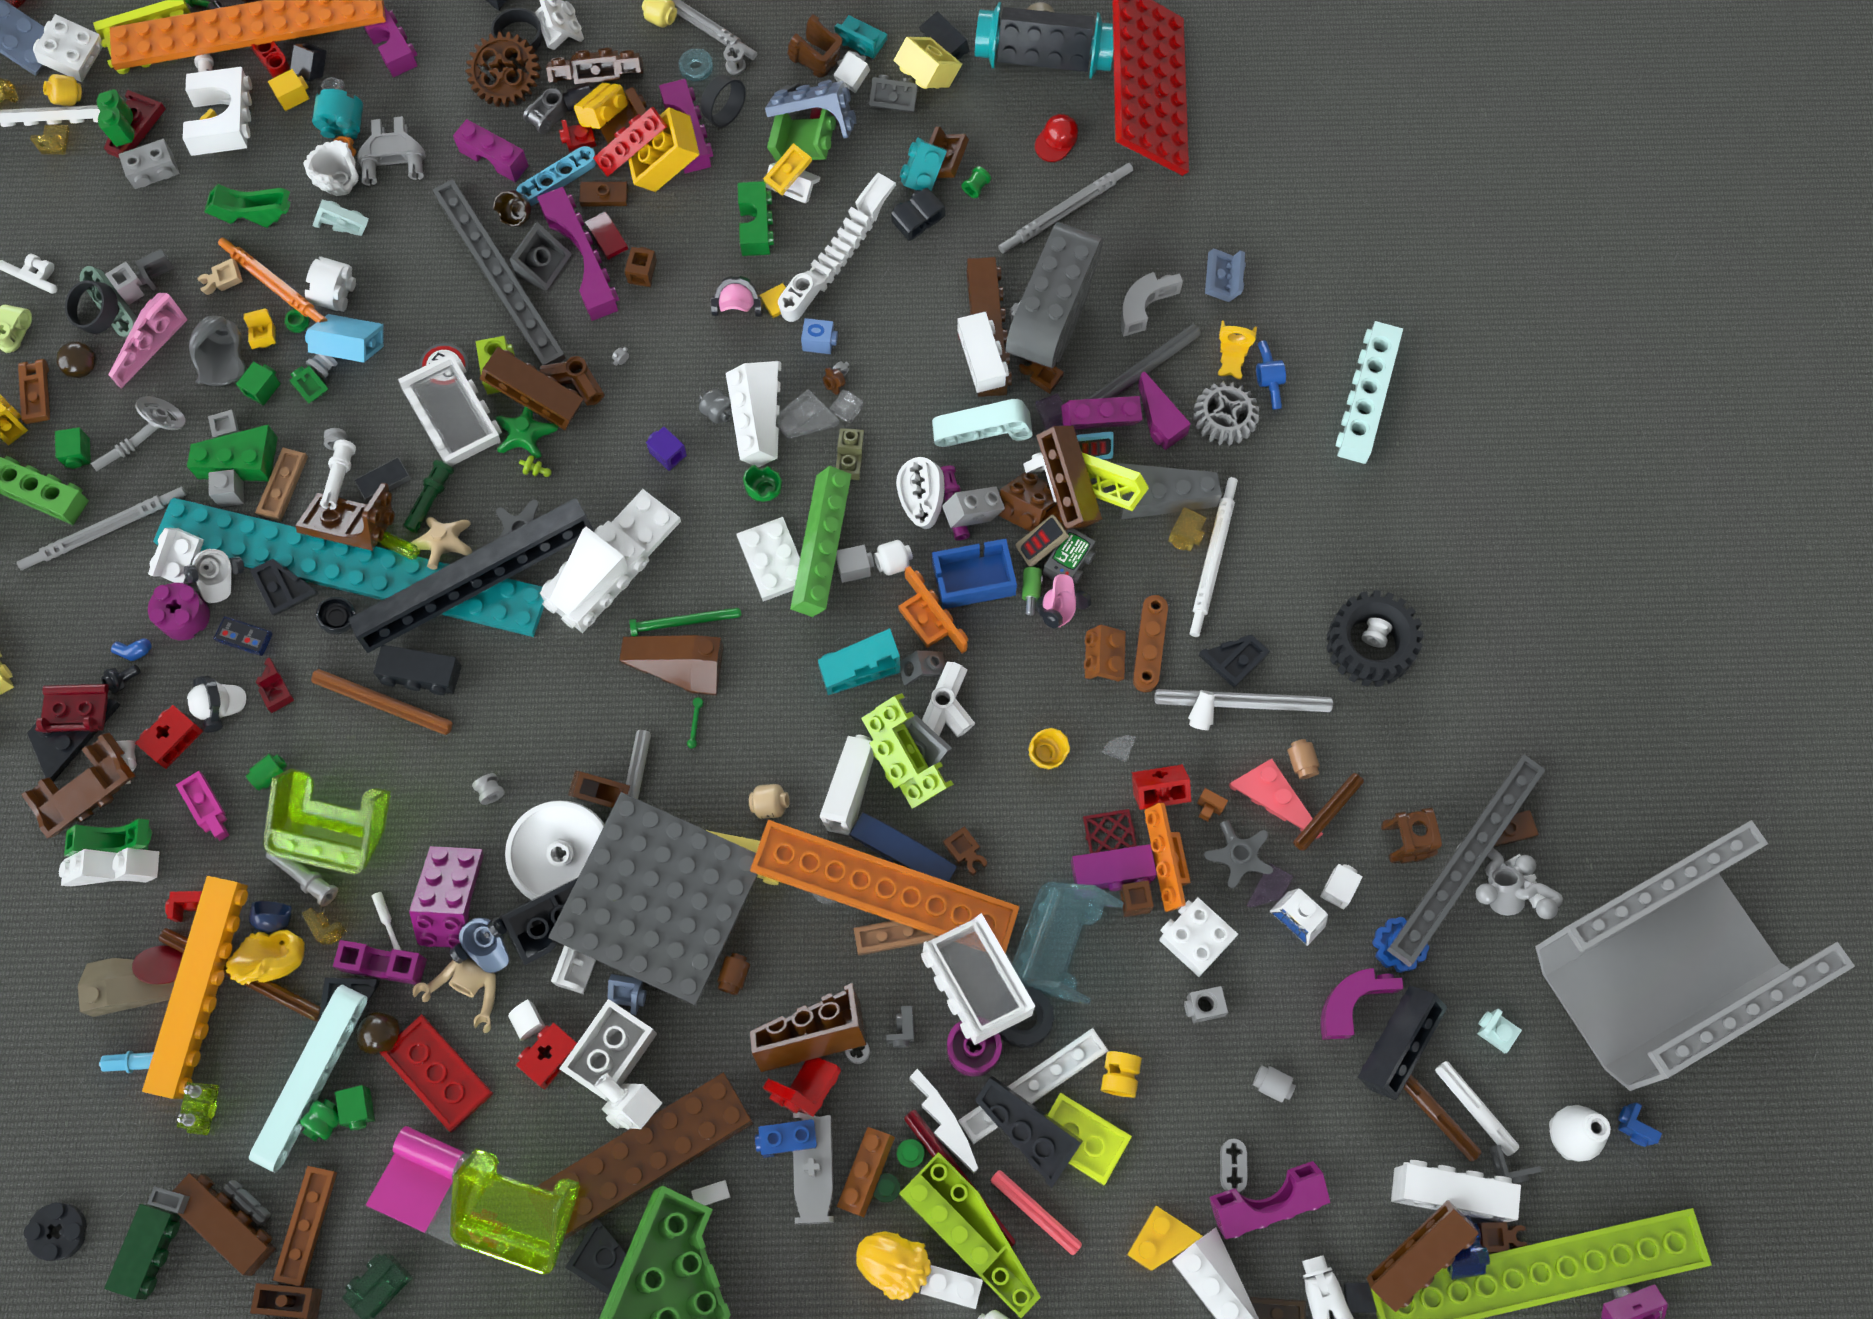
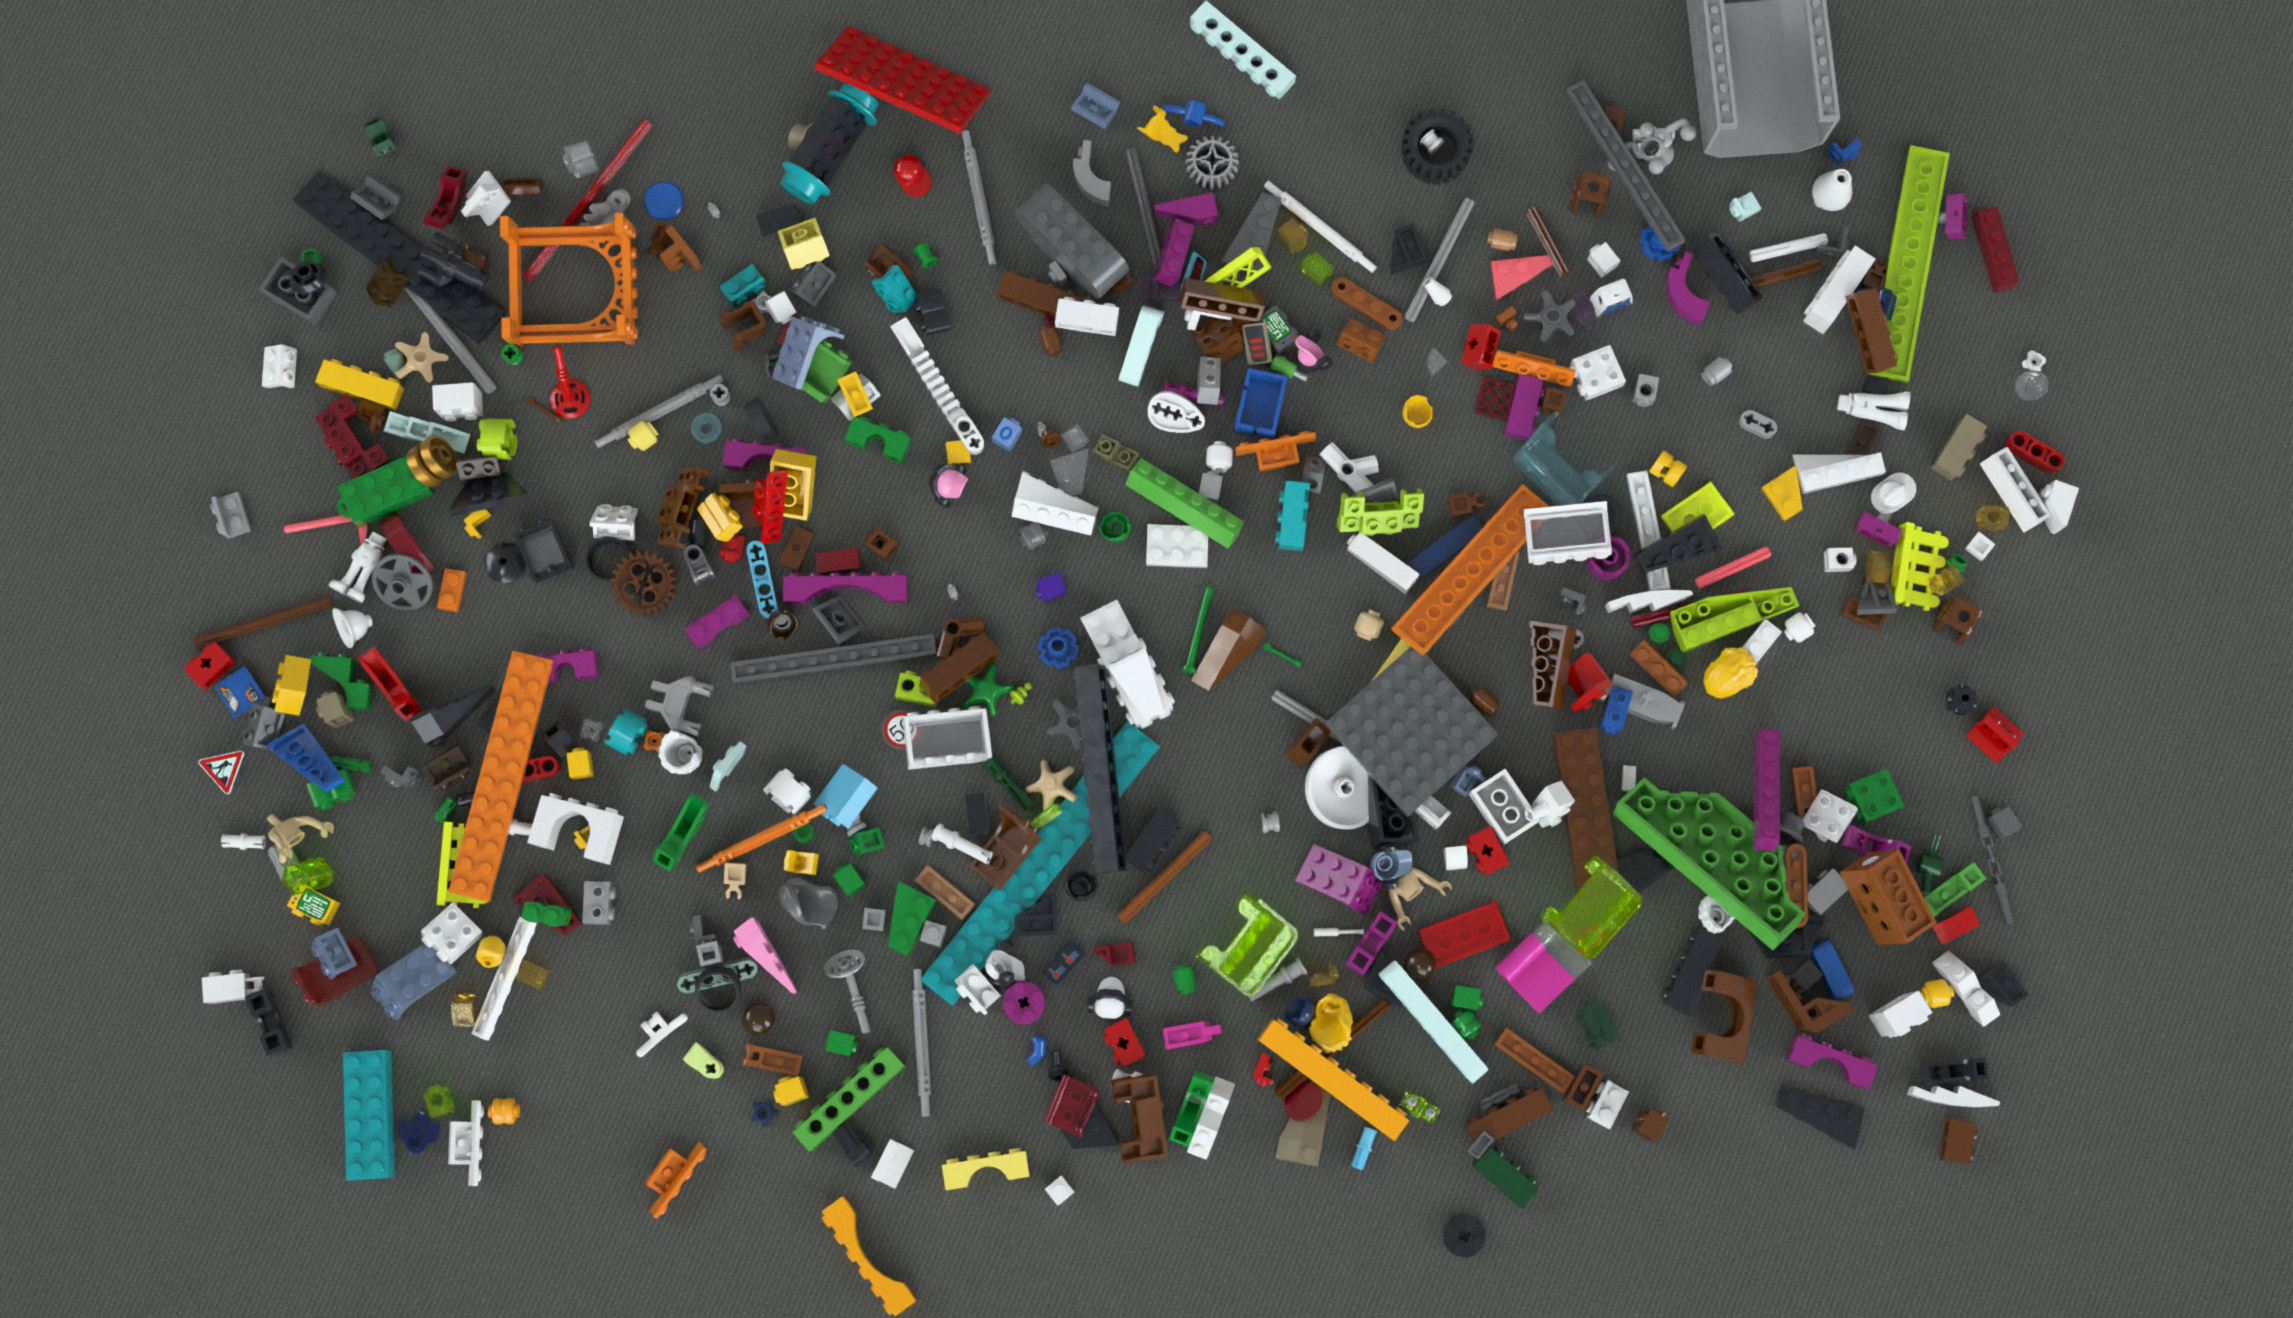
camera: 65 degrees left, 10 degrees up
(601, 484) = (1058, 648): none -> blue plant
(942, 337) = (1050, 340): none -> reddish brown brick
(1162, 571) = (1316, 268): none -> clear neon green brick
(1301, 1192) = (1794, 387): magenta arch -> none

